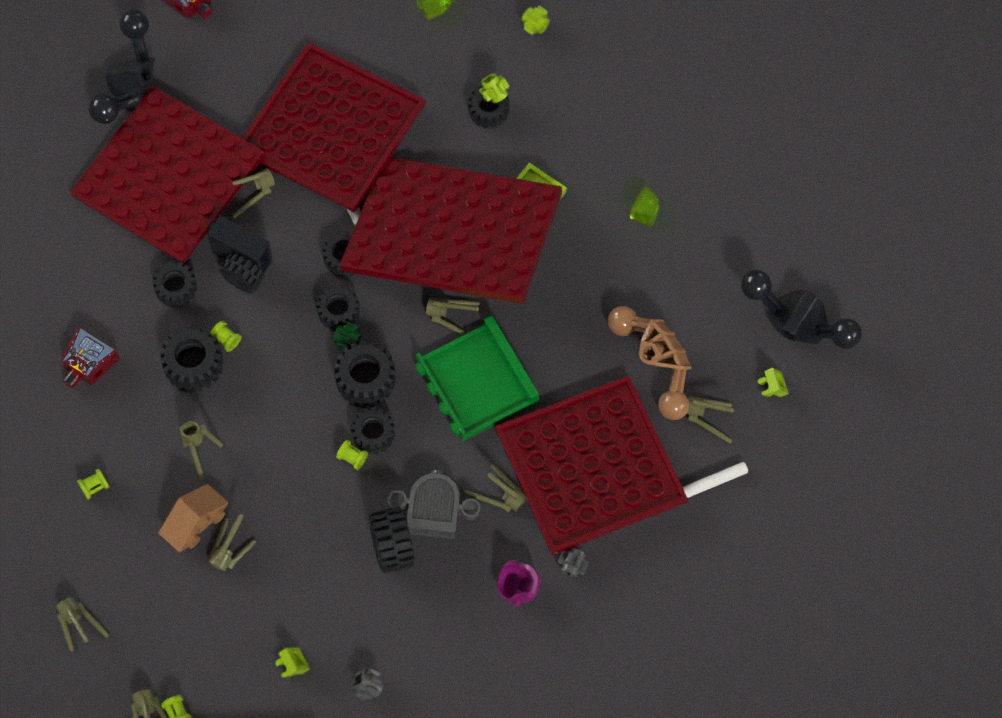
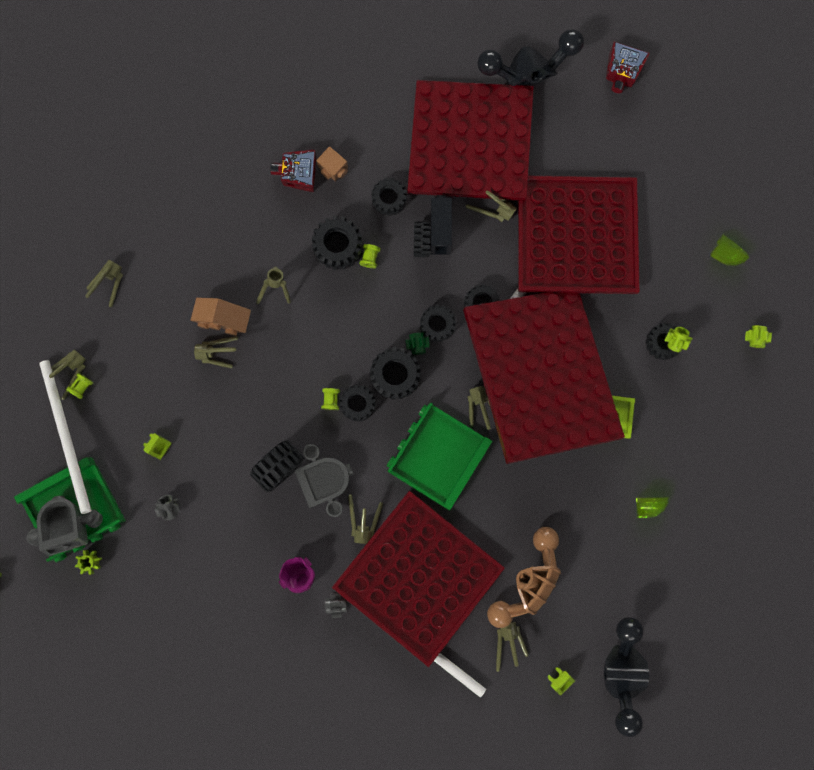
camera: 65 degrees right, 15 degrees up
(93, 484) = (209, 231): lime bush -> none
(104, 320) = (332, 164): none -> medium nougat brick

